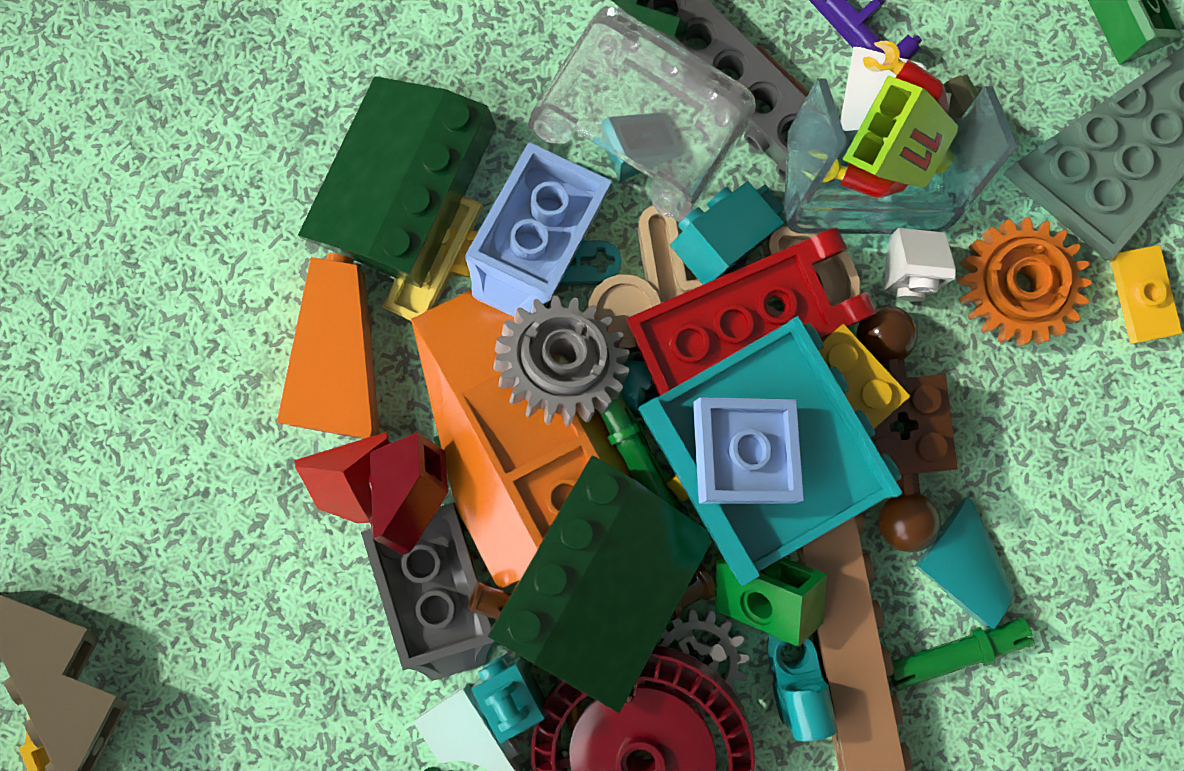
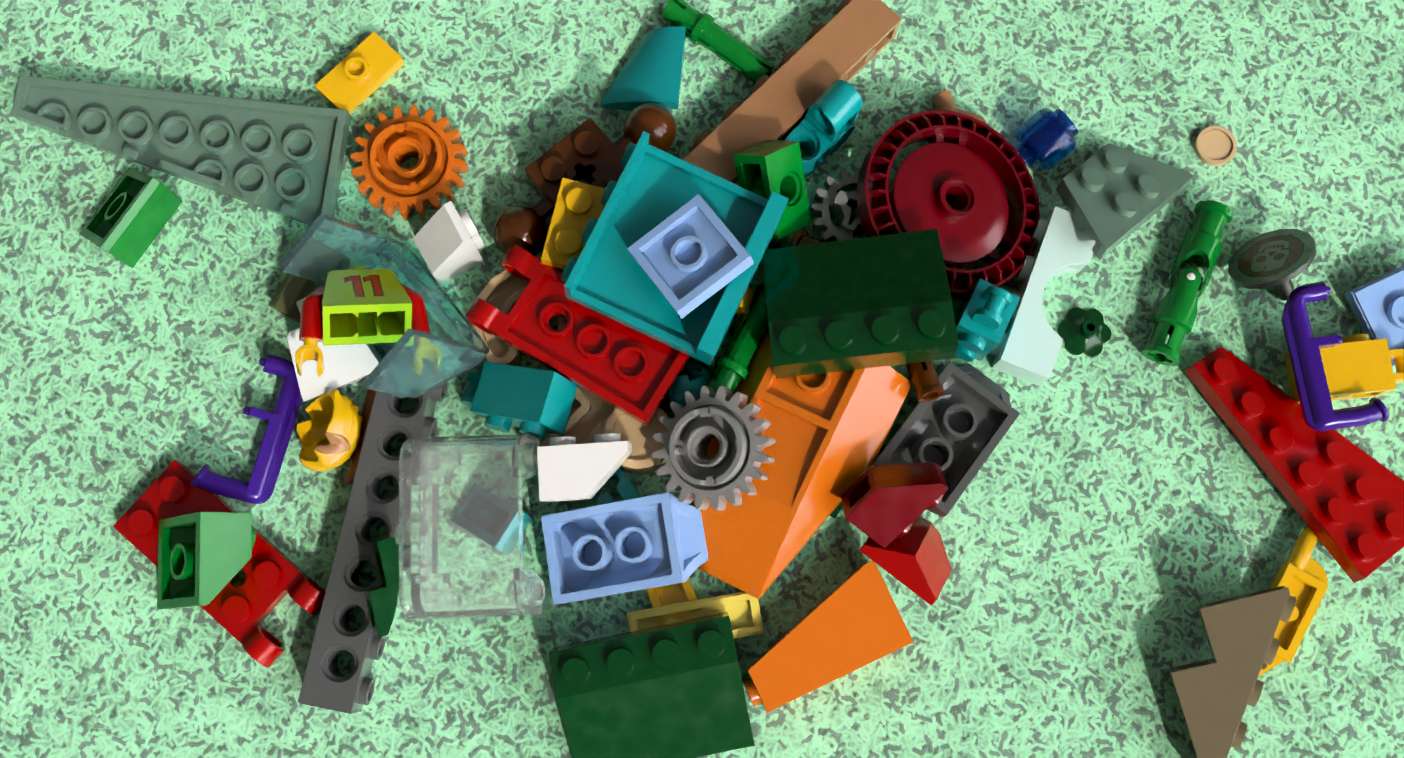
camera: 130 degrees left, 5 degrees down
(627, 231) = (578, 470): none -> white slope
(811, 53) = (330, 433): none -> yellow hair

